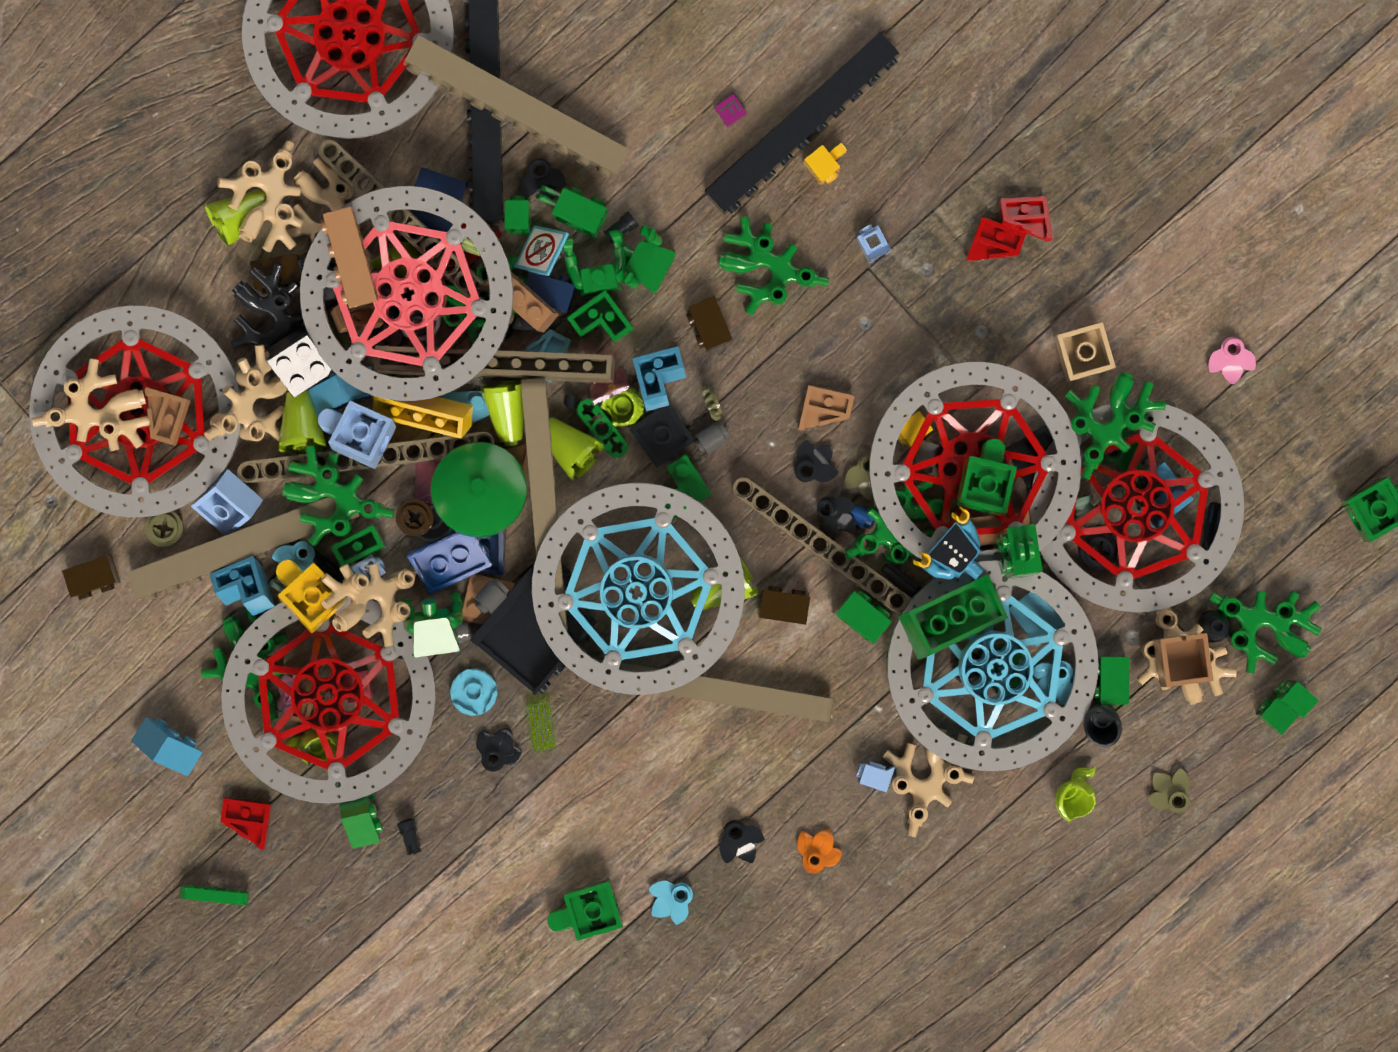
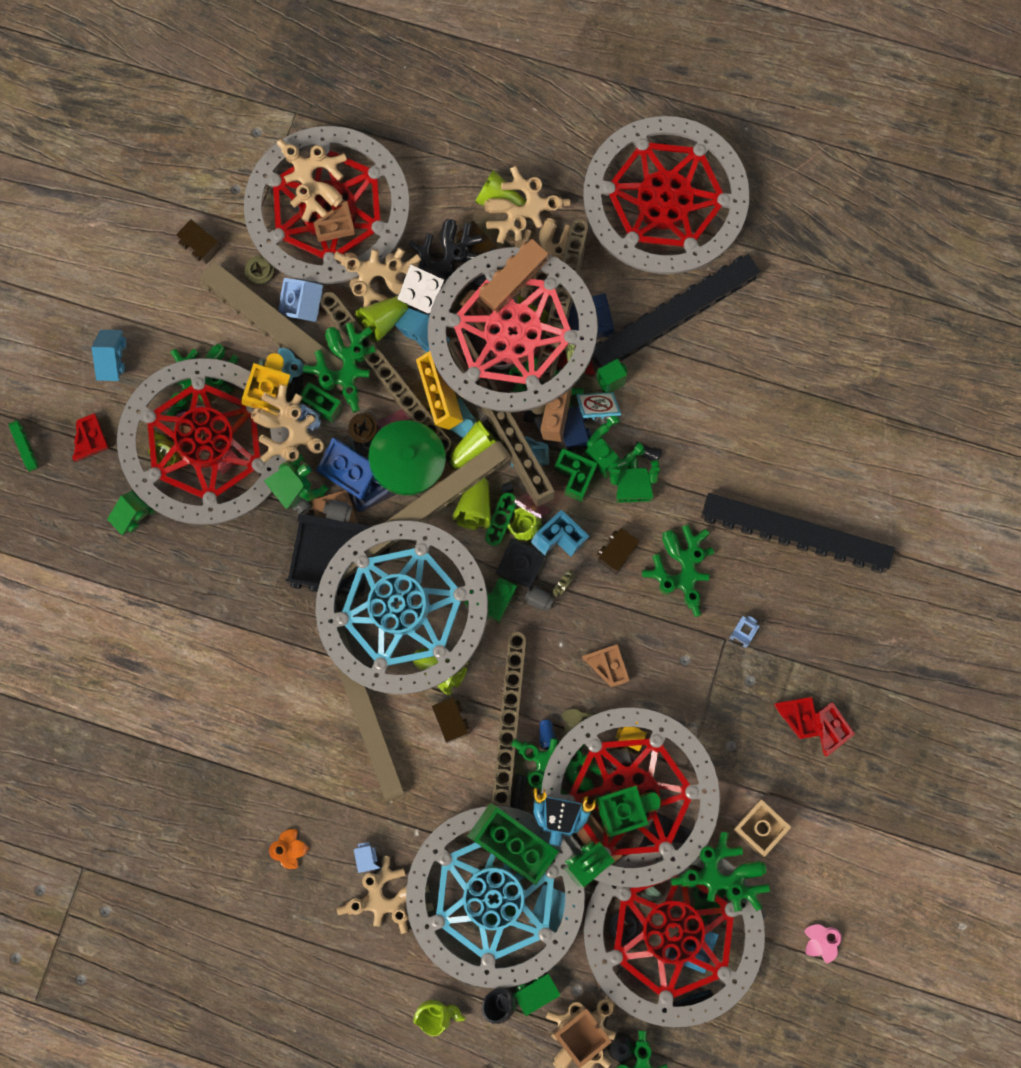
camera: 65 degrees right, 10 degrees down
(245, 582) = (250, 342): dark azure brick -> none
(358, 432) = (398, 354): light blue brick -> none
(408, 831) = (141, 550): black pin -> none
(473, 692) = (265, 539): medium azure tile -> none
(497, 745) = (236, 578): black plate -> none
(515, 106) = (685, 331): dark tan brick -> none
(532, 182) = (644, 383): black plate -> none
(541, 726) = (266, 600): clear neon green tile -> none
(576, 210) = (640, 413): green brick -> none
(588, 911) = (152, 708): green brick -> none
(668, 902) = (191, 762): medium azure plate -> none
(730, 110) = (774, 479): magenta tile -> none
(742, 844) = (261, 790): black plate -> none
(817, 460) = (568, 682): black plate -> none
(823, 163) = (779, 563): yellow brick -> none
(839, 516) = (536, 720): black plate -> none
(862, 616) = (474, 778): green brick -> none
(1043, 673) = (512, 937): medium azure plate -> none

